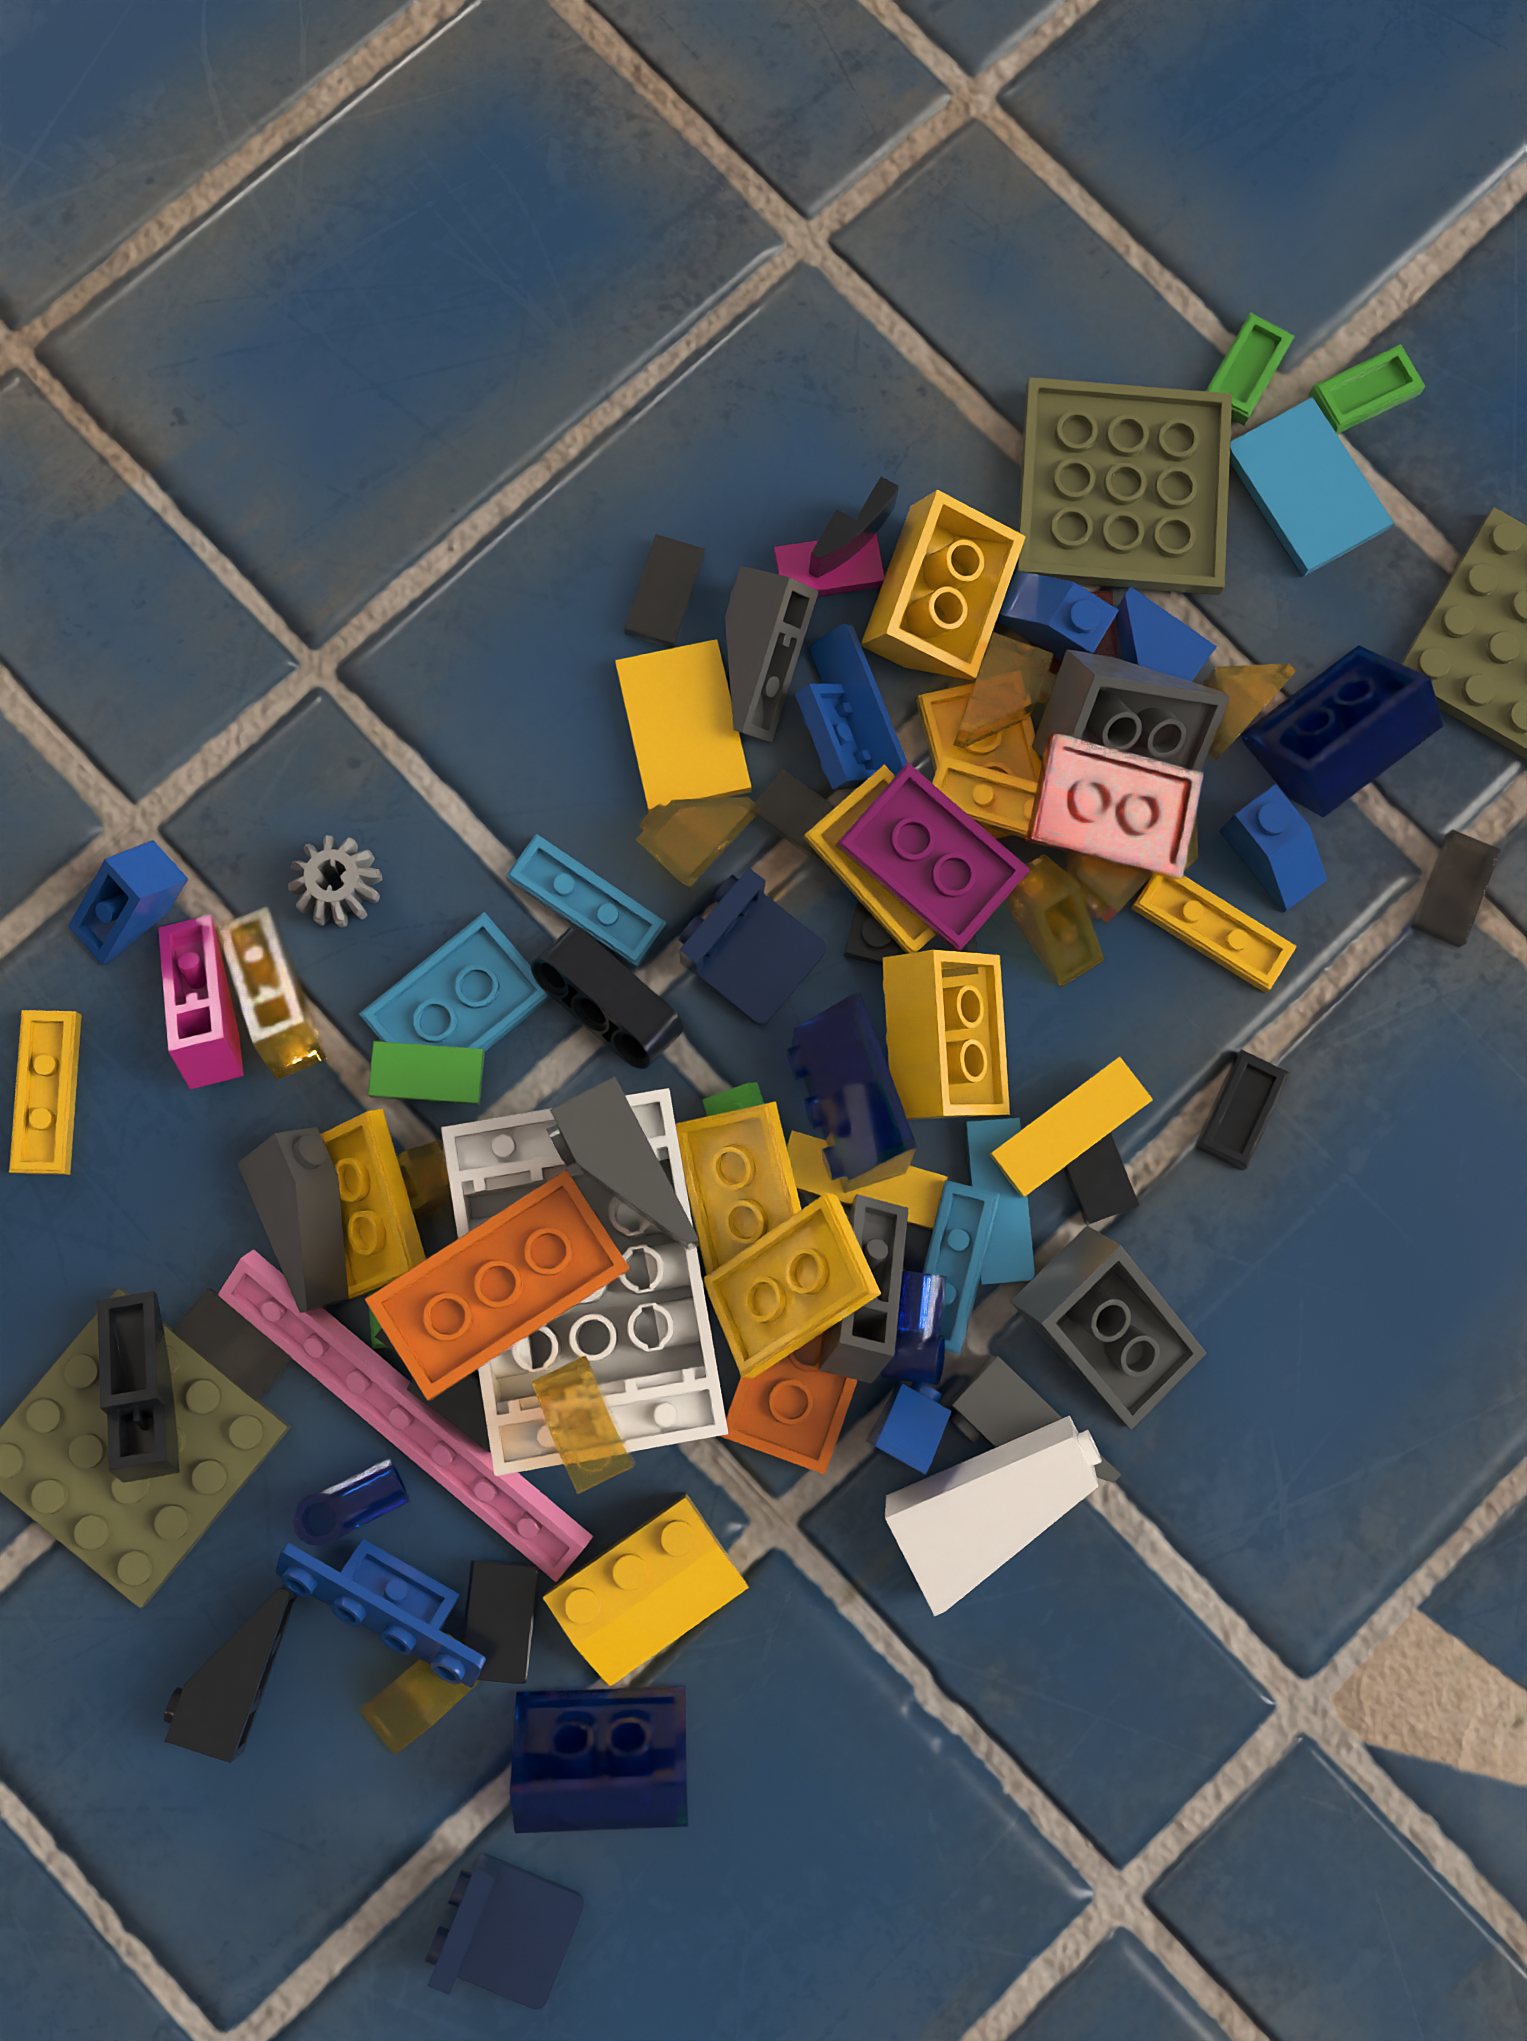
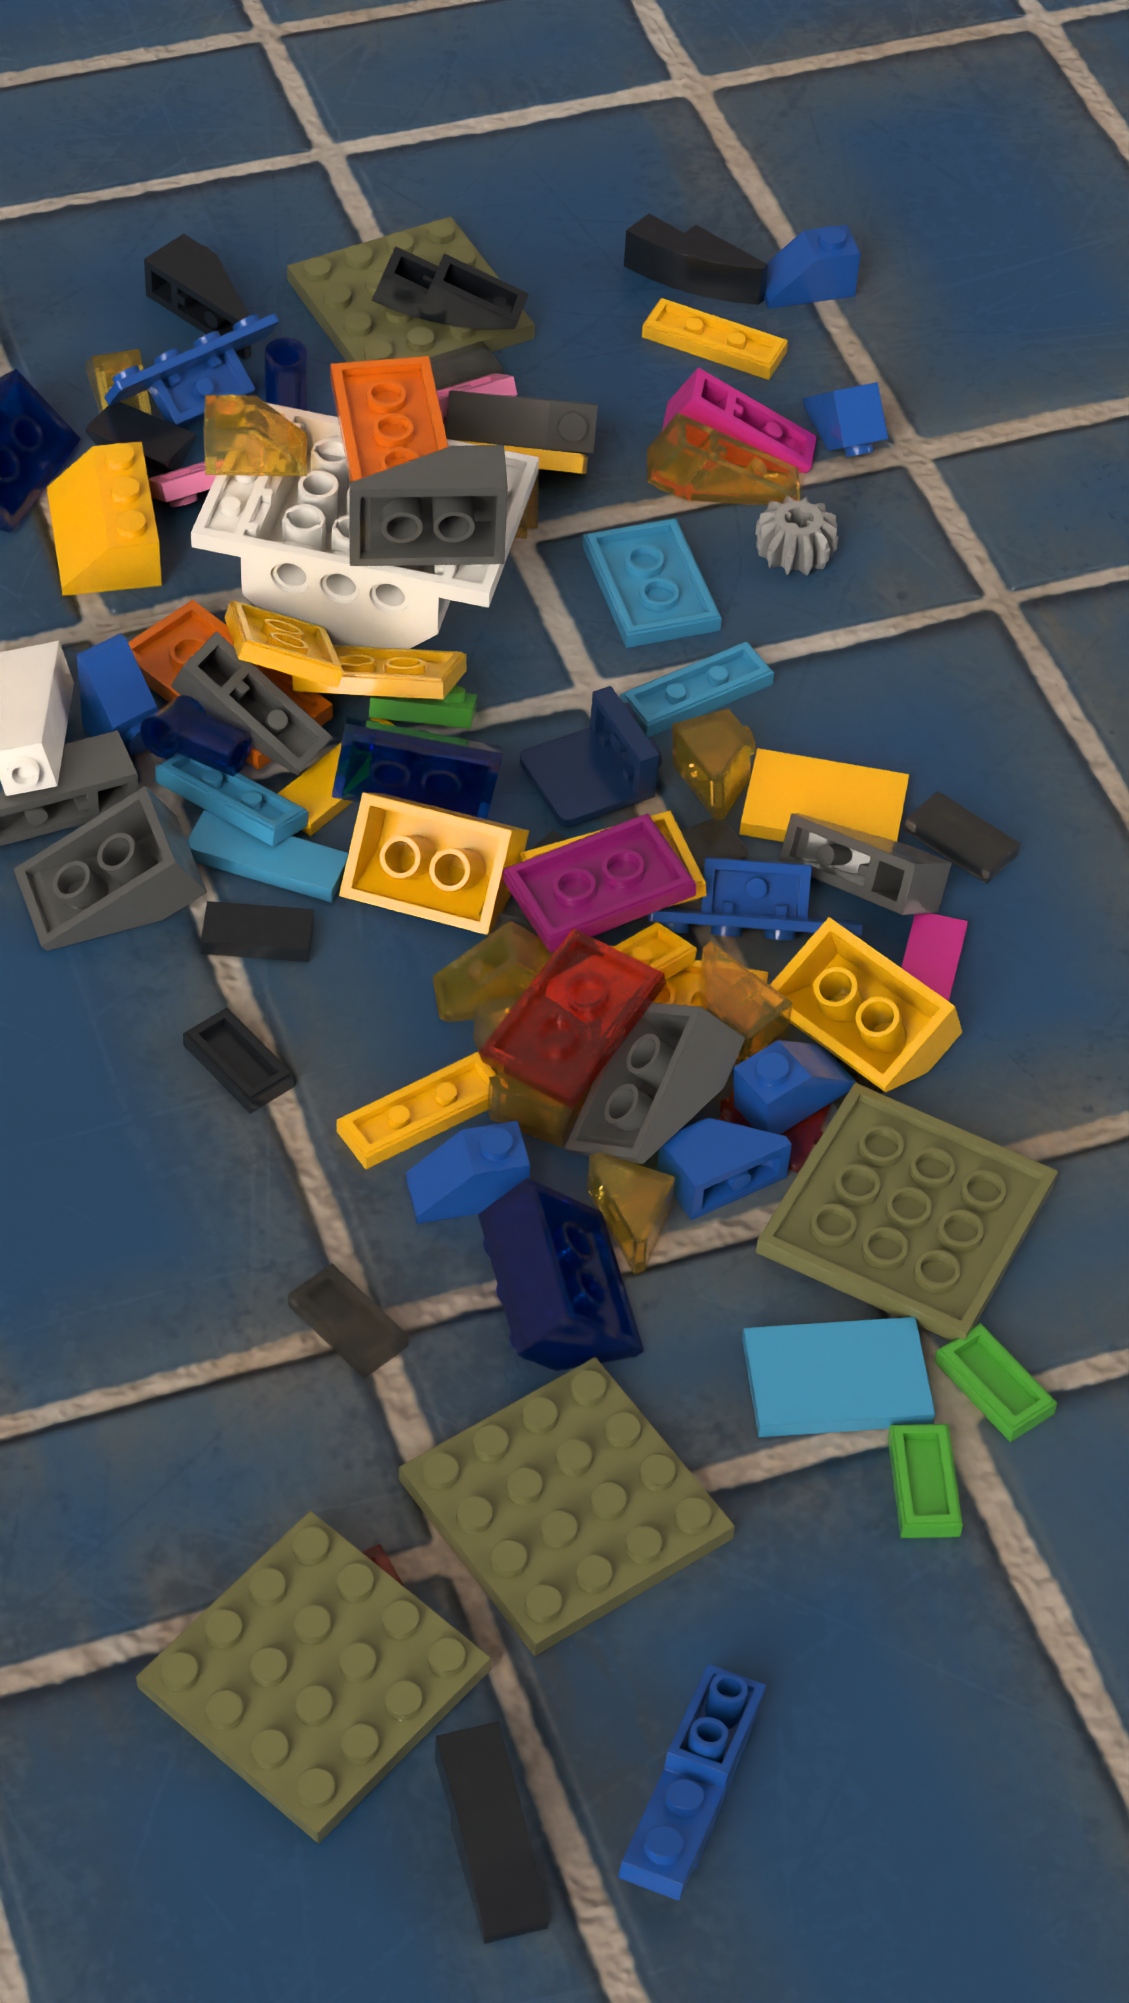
camera: 120 degrees right, 30 degrees down
(426, 1073) = (599, 531): bright green tile -> none
(607, 998) = (599, 656): black beam -> none
(847, 535) = (946, 953): black slope -> none
(1070, 1127) = (300, 912): yellow tile -> none

